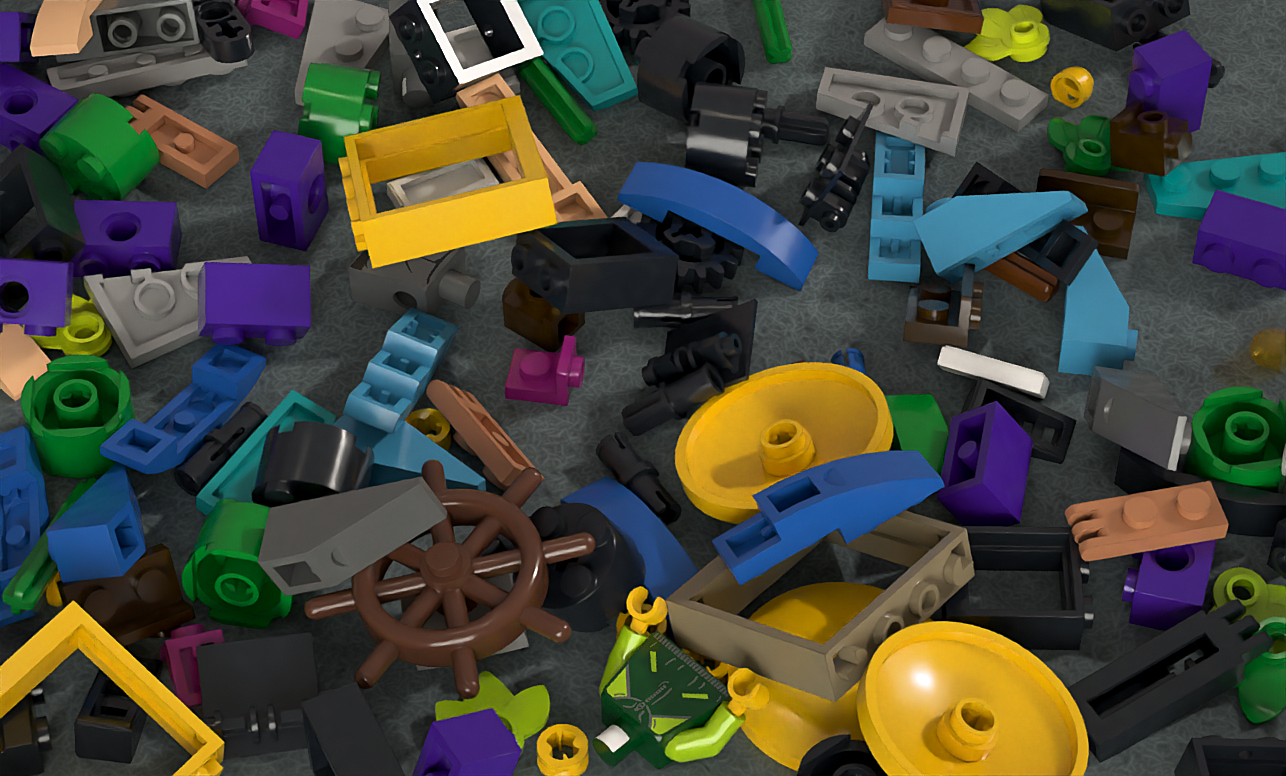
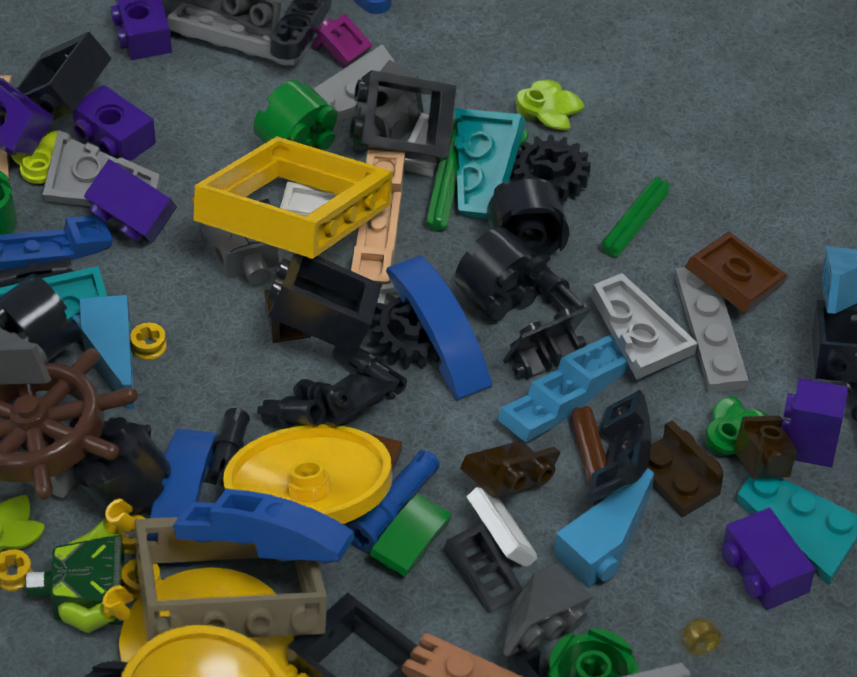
camera: 40 degrees right, 0 degrees up
(100, 149) = (146, 65): green brick -> none
(182, 143) = (205, 87): nougat hinge -> none
(289, 190) = (216, 141): dark purple brick -> none
(401, 370) = (162, 293): dark azure slope -> none
(479, 433) = (171, 363): nougat hinge -> none
(545, 375) = (249, 350): magenta bracket -> none
(985, 467) = (419, 580): dark purple brick -> none
(989, 227) = (584, 433): dark azure slope -> none
(1015, 29) = (771, 324): neon yellow plate -> none
(1075, 82) = (773, 382): yellow hinge -> none

